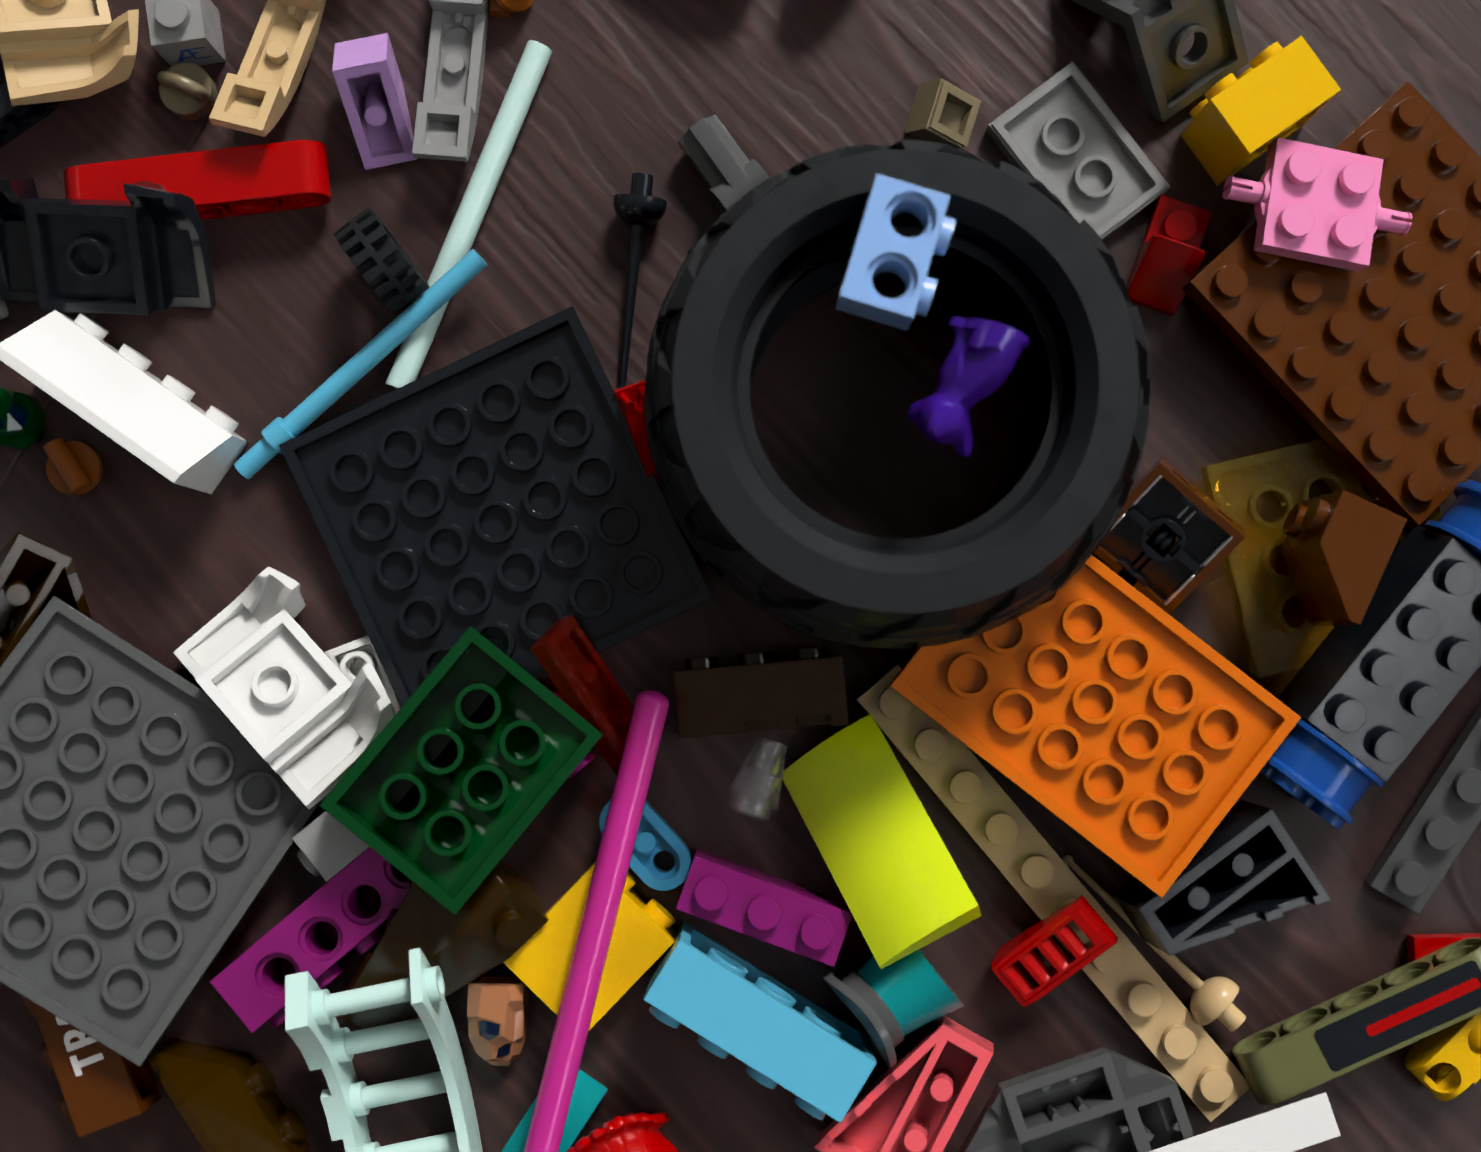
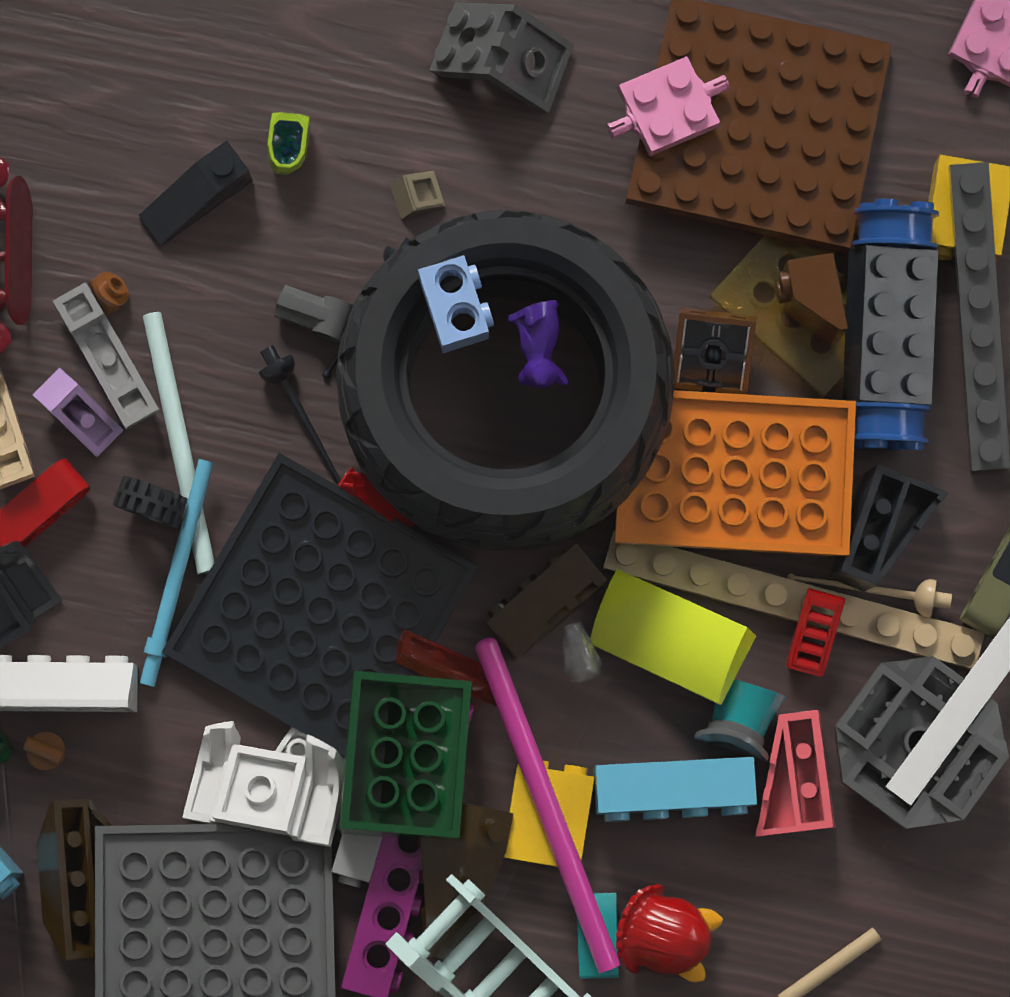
camera: 40 degrees left, 5 degrees down
(497, 1017) = (523, 898): nougat rock -> none
(652, 837) = (541, 729): dark azure plate -> none
(765, 907) = (632, 722): magenta brick -> none
(1079, 152) = (513, 166): light grey tile -> none
(1168, 255) = (604, 187): red slope -> none
(1257, 107) = (600, 68): yellow brick -> none

